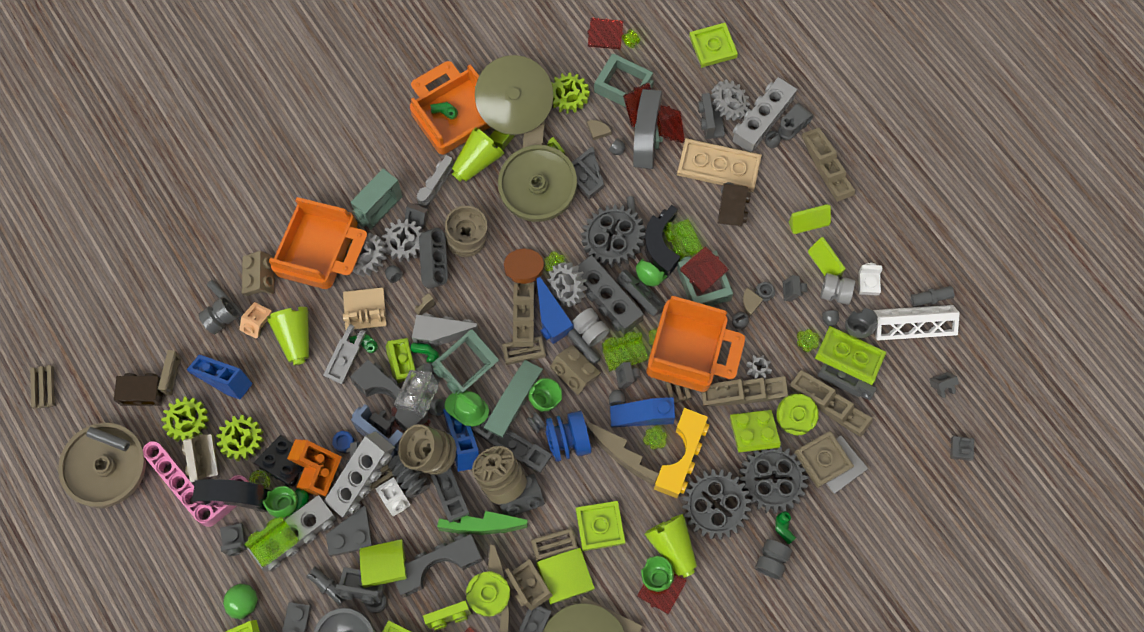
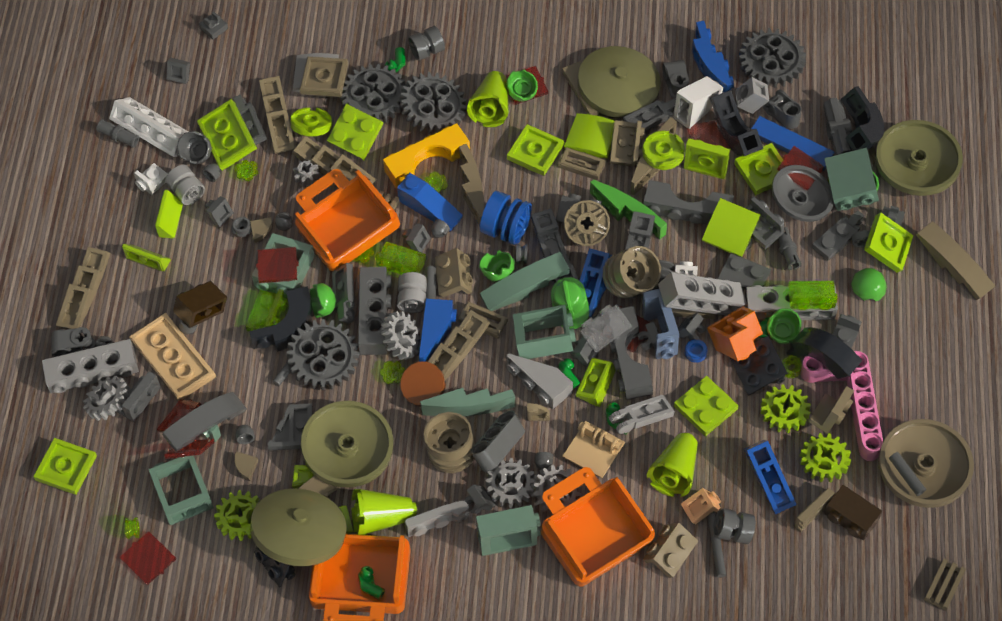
camera: 140 degrees left, 10 degrees down
(305, 401) = (706, 406): none -> lime plate
(484, 270) = (468, 405): none -> sand green slope

